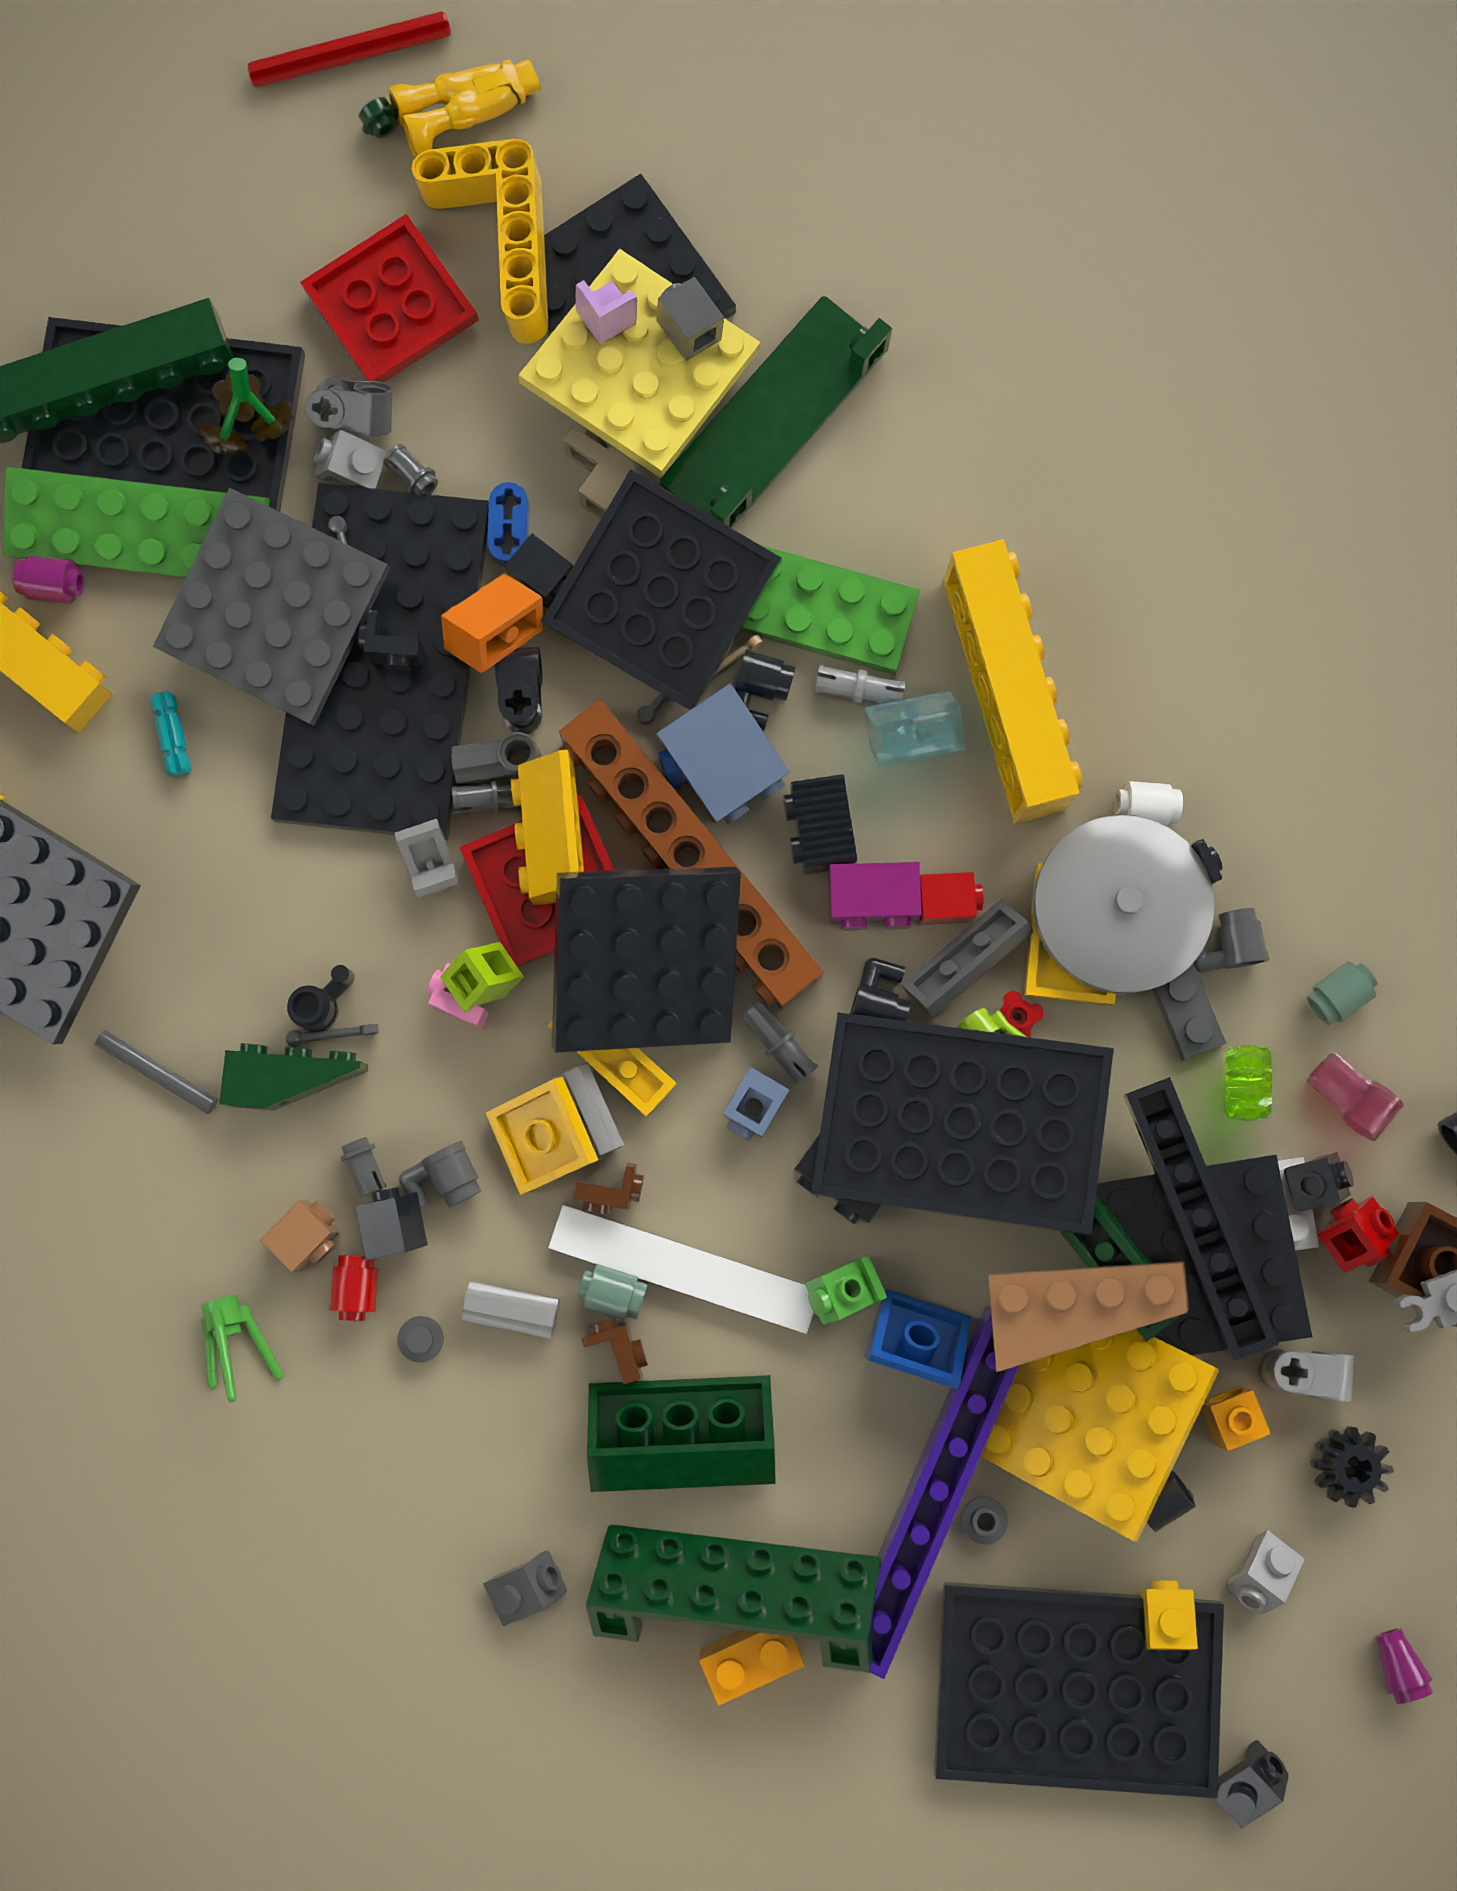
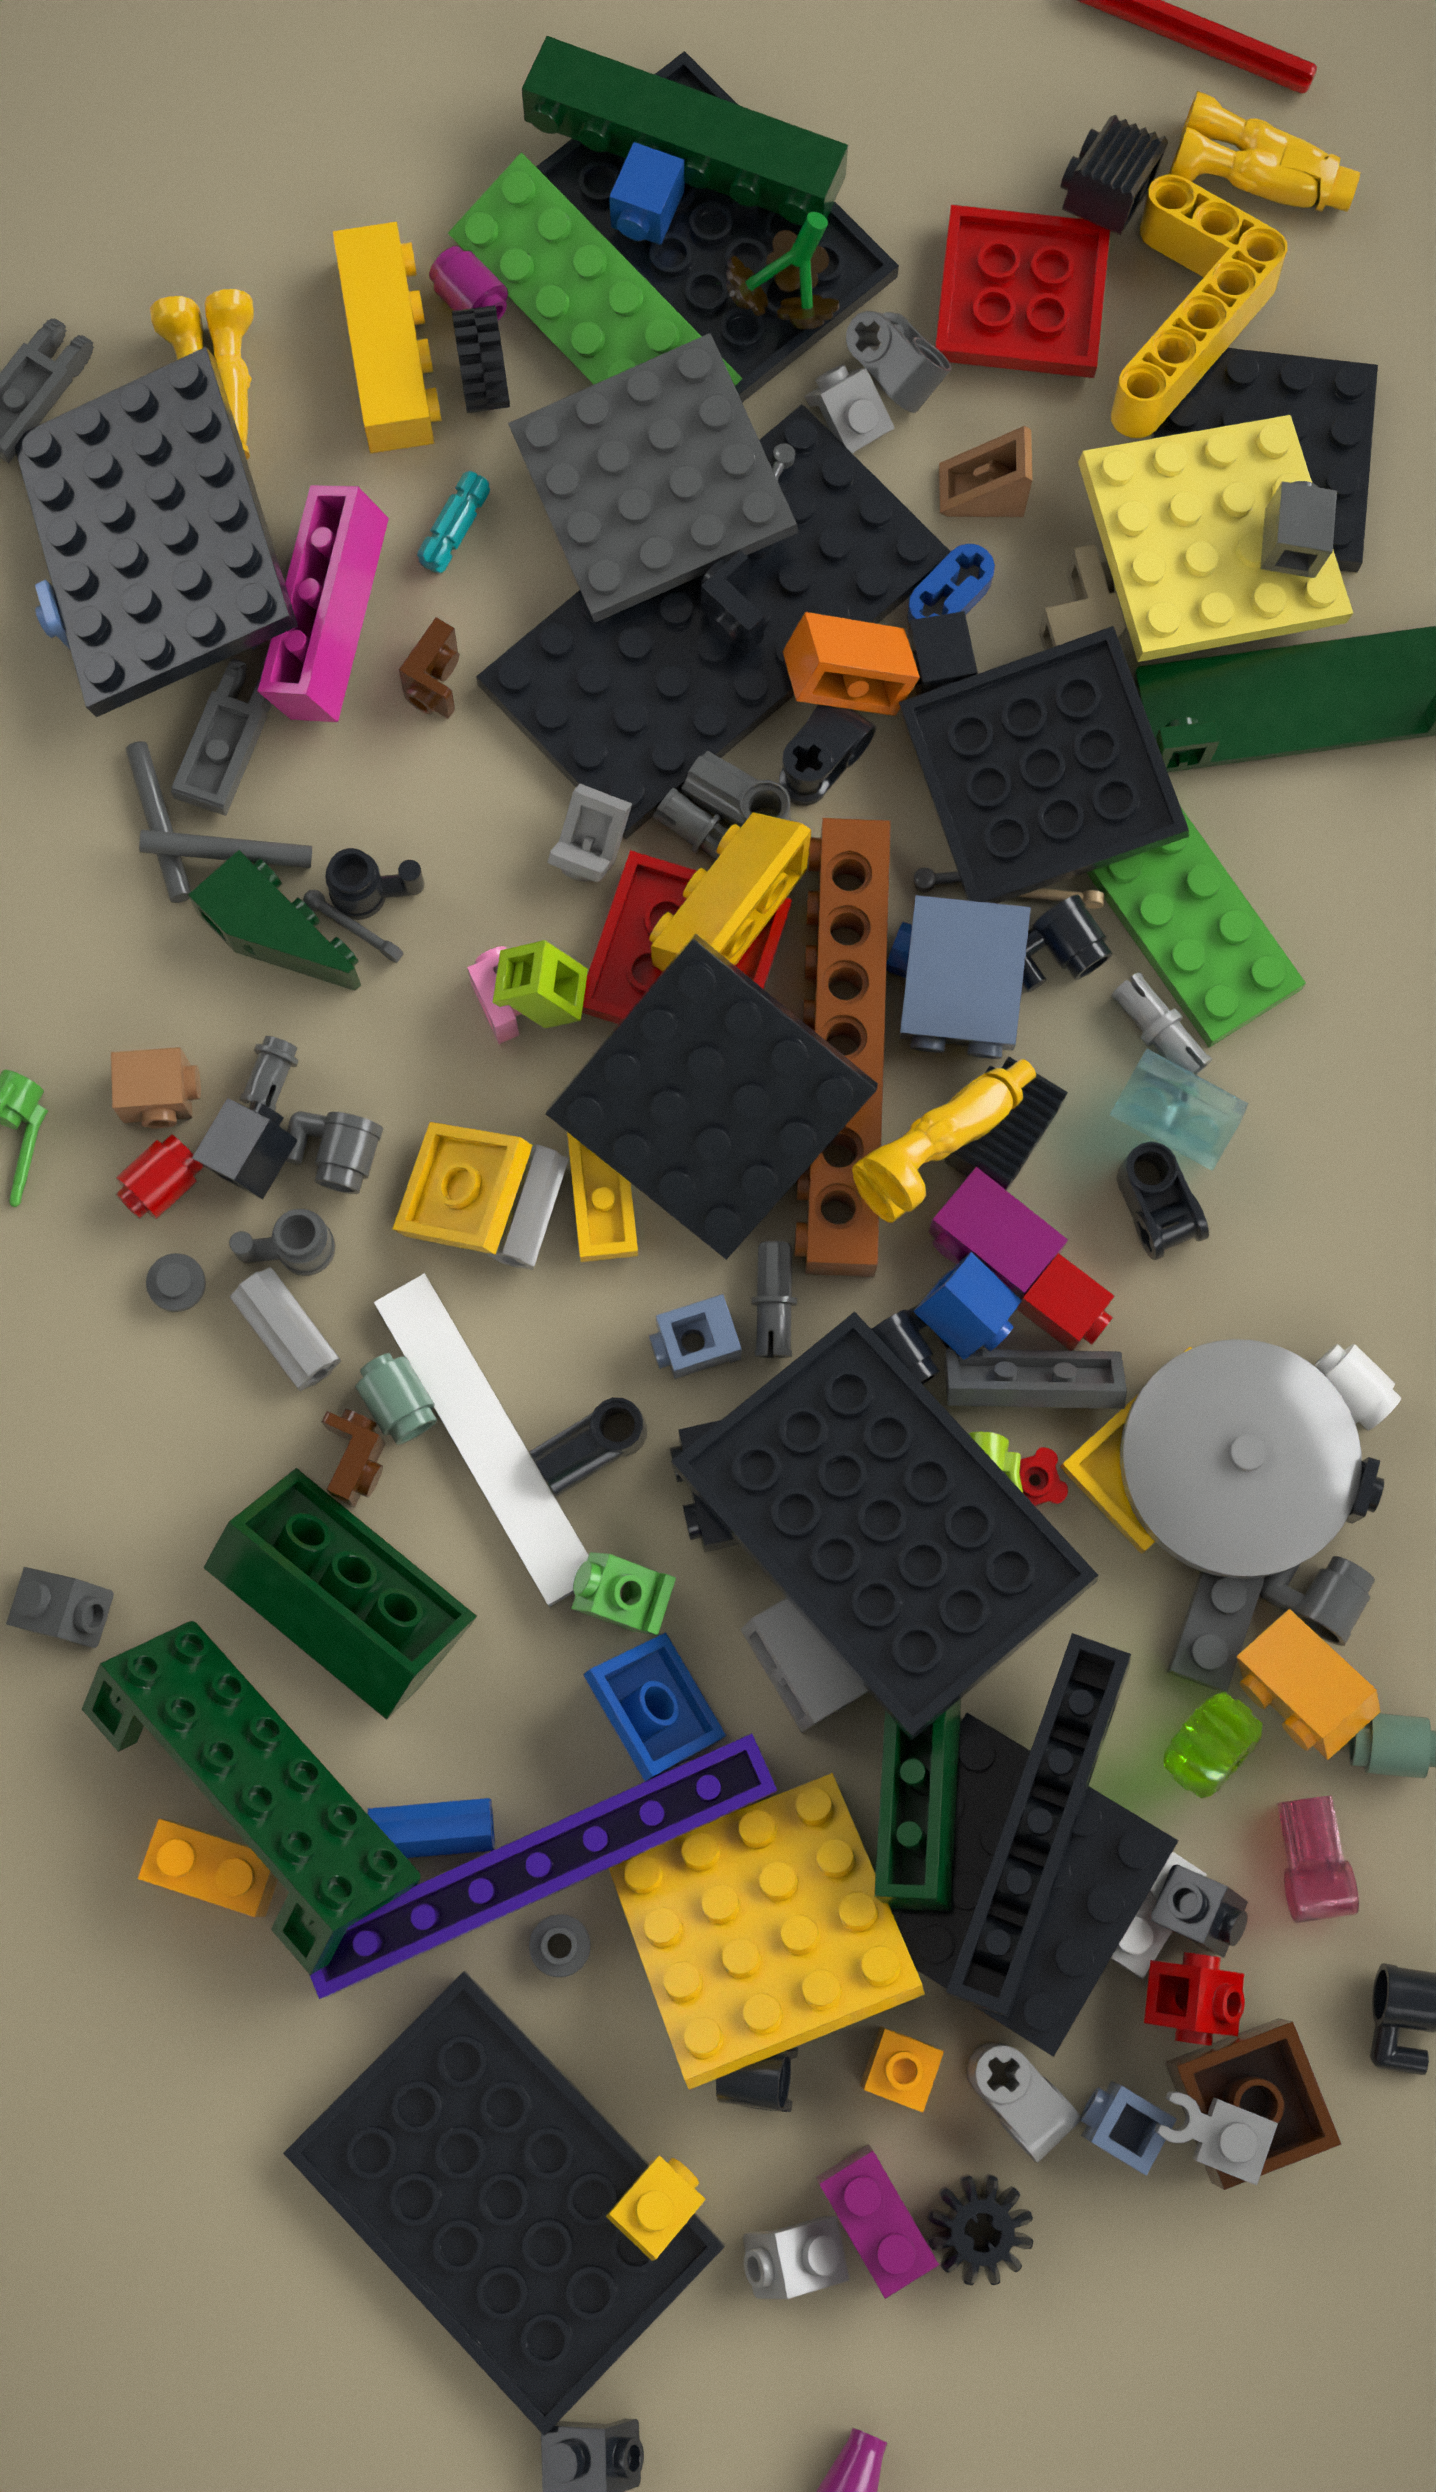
camera: 40 degrees right, 5 degrees down
(98, 619) = (481, 359): none -> black tyre
(109, 430) = (646, 194): none -> blue brick
(138, 847) = (329, 595): none -> dark pink brick
(152, 989) = (221, 744): none -> dark grey hinge
(213, 1054) = (223, 848): none -> dark grey bar
(235, 831) = (430, 661): none -> reddish brown bracket
(378, 117) = (1164, 113): dark green plate -> none
(382, 181) = (1112, 174): none -> black brick
(411, 471) = (901, 464): dark grey pin -> none
(472, 436) = (989, 478): none -> medium nougat slope
(472, 1251) = (297, 1240): none -> dark grey piece
(601, 1198) = (466, 1298): reddish brown bracket -> none
(605, 310) = (1222, 457): lavender panel -> none
(747, 1225) = (583, 1446): none -> black piece
(790, 914) = (890, 1174): none -> yellow piece
(856, 1517) = (438, 1827): none -> blue axle
(896, 950) = (969, 1307): none -> blue brick
(951, 792) = (1161, 1204): none -> black piece
(979, 1242) = (801, 1665): none -> light grey hinge
(1011, 681) = (1316, 1142): yellow brick -> none
(1068, 1308) = (823, 1788): medium nougat wedge -> none
(1270, 1003) = (1307, 1685): none -> light orange brick
(1293, 1514) = (877, 2221): none -> magenta brick
(1381, 1339) = (1125, 2125): none -> sand blue brick

